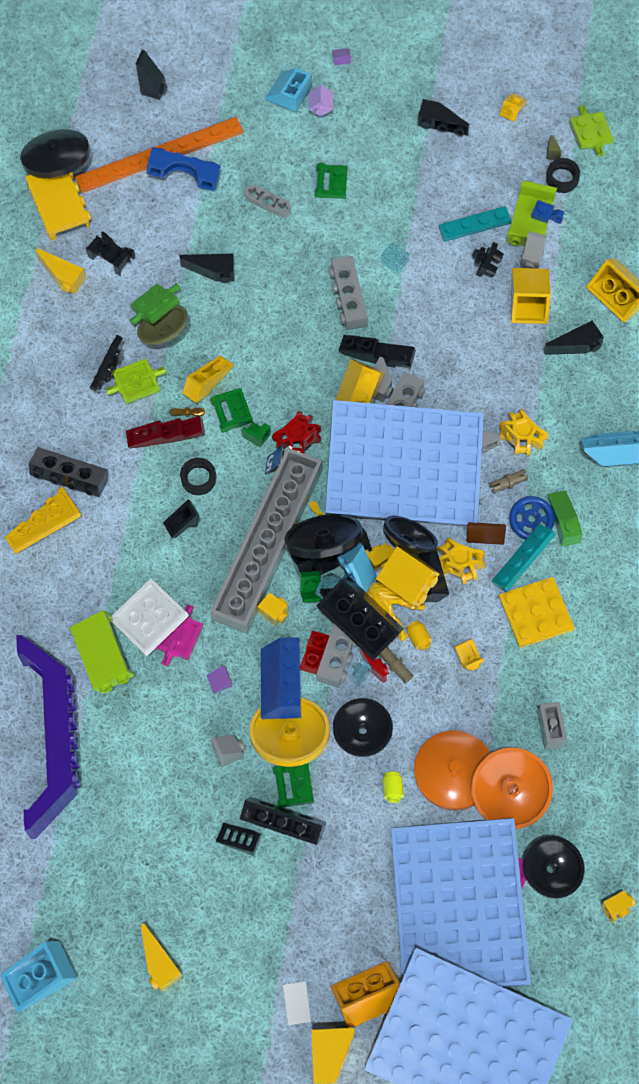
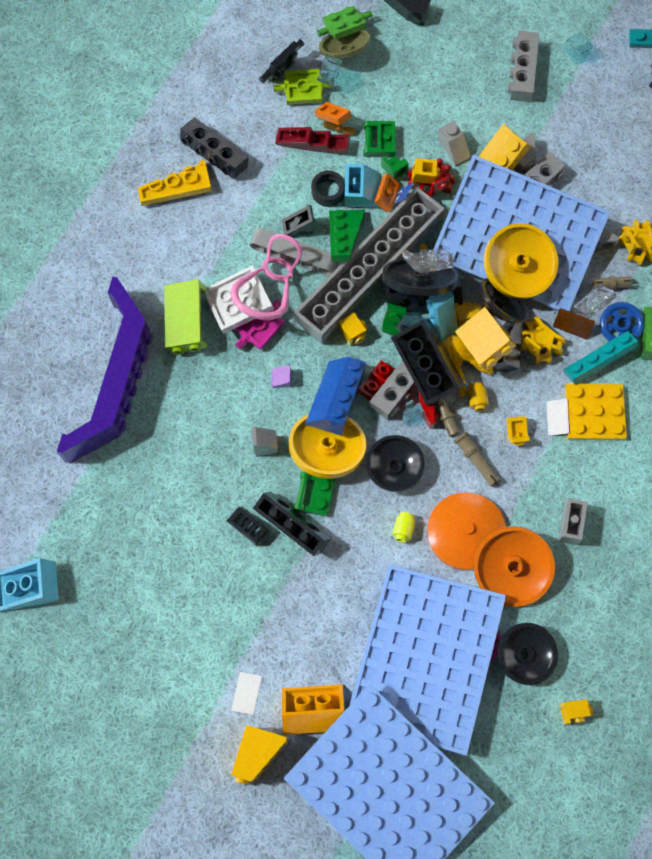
camera: 20 degrees right, 5 degrees up
(158, 357) = (330, 70): none -> clear light blue panel
(159, 965) = (135, 614): yellow slope -> none
(176, 399) = (333, 113): none -> orange plate
(187, 551) = (311, 258): none -> light grey beam
(197, 601) = (285, 300): none -> bright pink animal
(206, 378) = (368, 102): yellow slope -> none
(231, 516) = (344, 232): none -> green wing
(232, 464) = (361, 185): none -> medium azure slope
(259, 462) = (387, 193): none -> orange plate
(289, 429) = (425, 171): none -> yellow brick
(307, 391) = (454, 143): none -> light grey slope
(326, 517) = (429, 260): none -> clear slope
(371, 349) = (525, 122): black slope -> none
(415, 489) = (520, 261): none -> yellow dish
(431, 691) = (471, 452): none -> dark tan pin
(498, 505) = (594, 301): none -> clear bracket
(502, 629) = (557, 417): none -> white sticker

